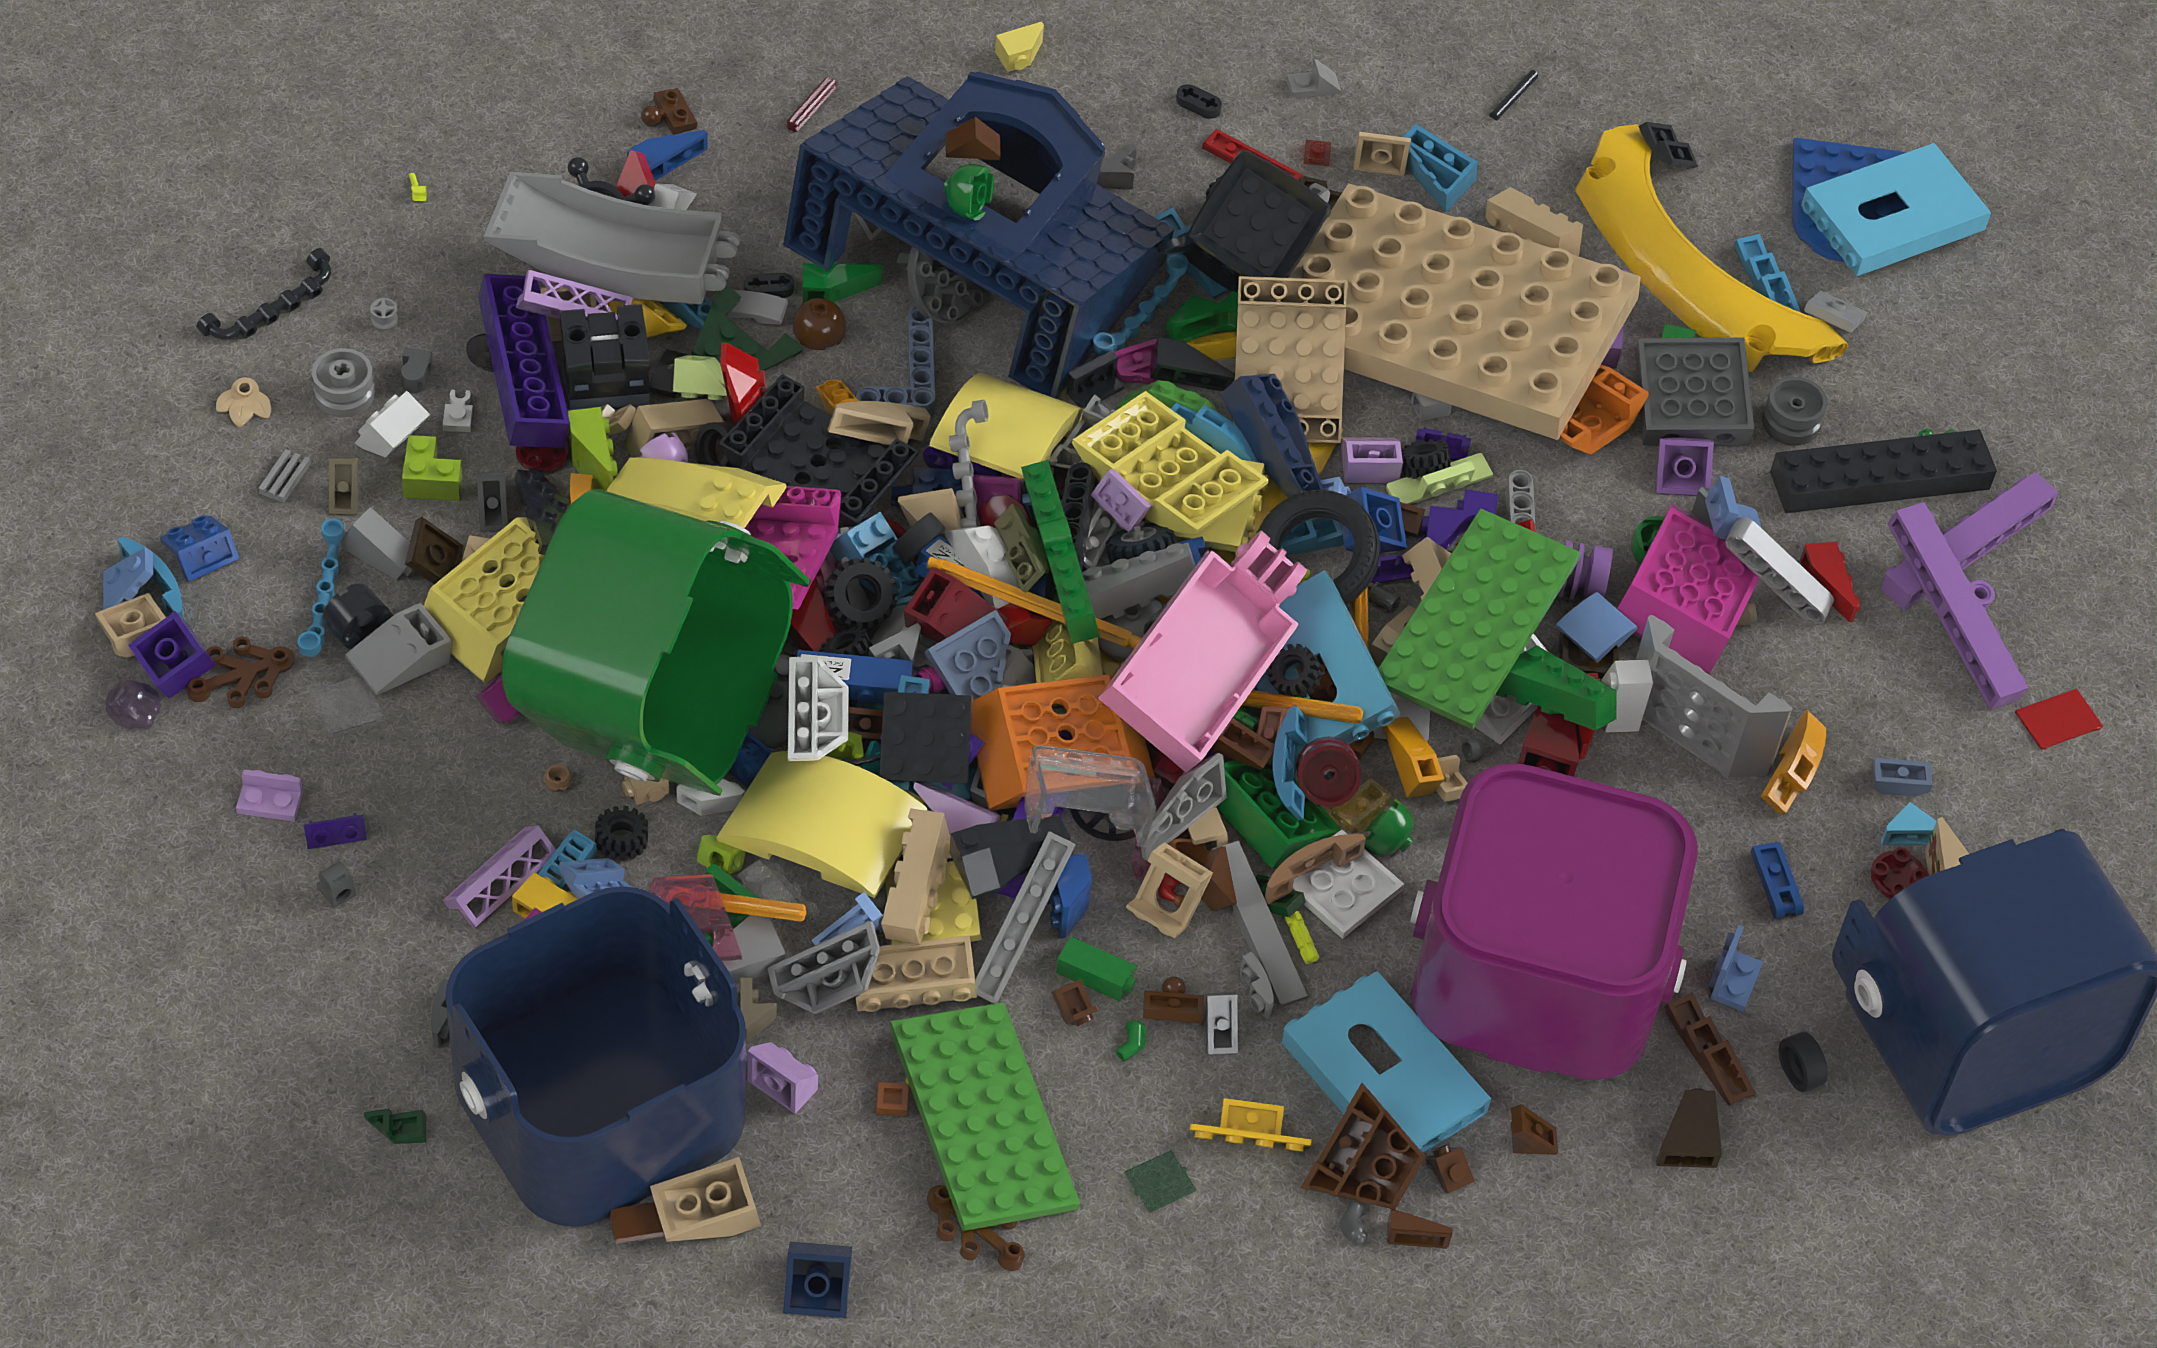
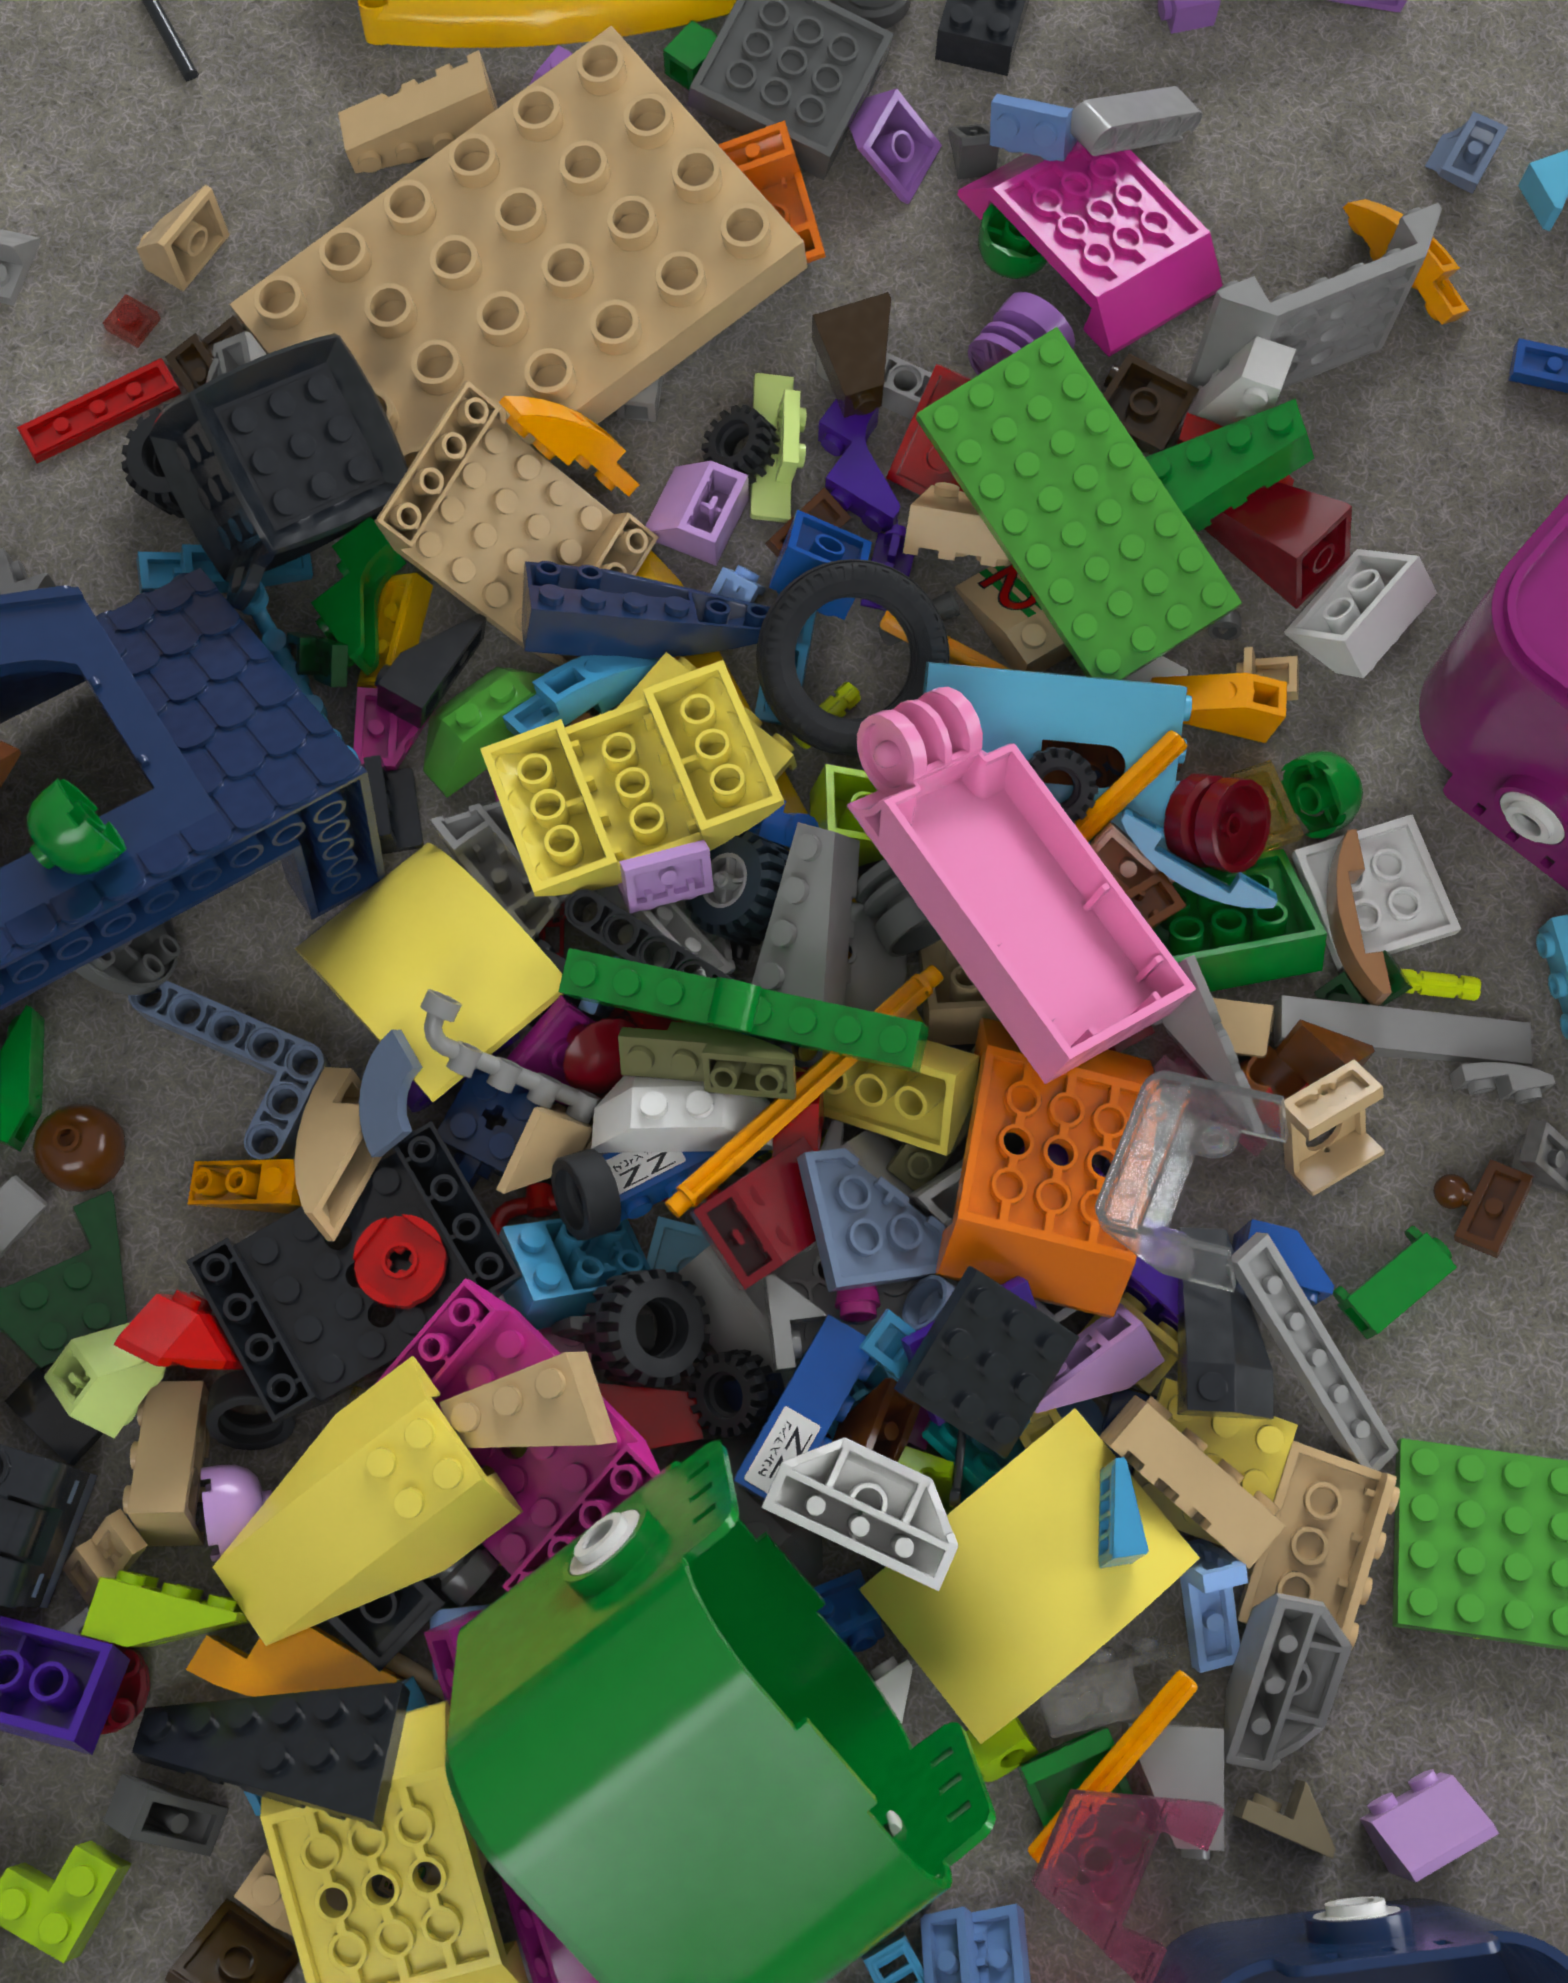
camera: 60 degrees left, 20 degrees up
(792, 536) = (534, 1407): none -> tan wedge
(834, 454) = (396, 1235): none -> red plate
(867, 831) = (1120, 1524): none -> dark azure slope
(892, 1099) = (1506, 1674): dark orange plate -> none
(921, 419) = (385, 1093): none -> sand blue tile
(1074, 1003) = (1446, 1340): reddish brown bracket -> none
(1136, 1040) = (1524, 1284): green arm -> none
(1160, 311) = (321, 658): none -> dark green slope
(1365, 357) = (570, 438): none -> light orange slope
(1439, 167) = (253, 180): dark azure wedge -> none
(1457, 444) = (723, 395): dark purple hinge -> none
(1519, 485) = (854, 351): none -> dark brown slope
(1596, 626) = (1129, 372): medium blue slope -> none
(1828, 567) = (1132, 68): red slope -> none

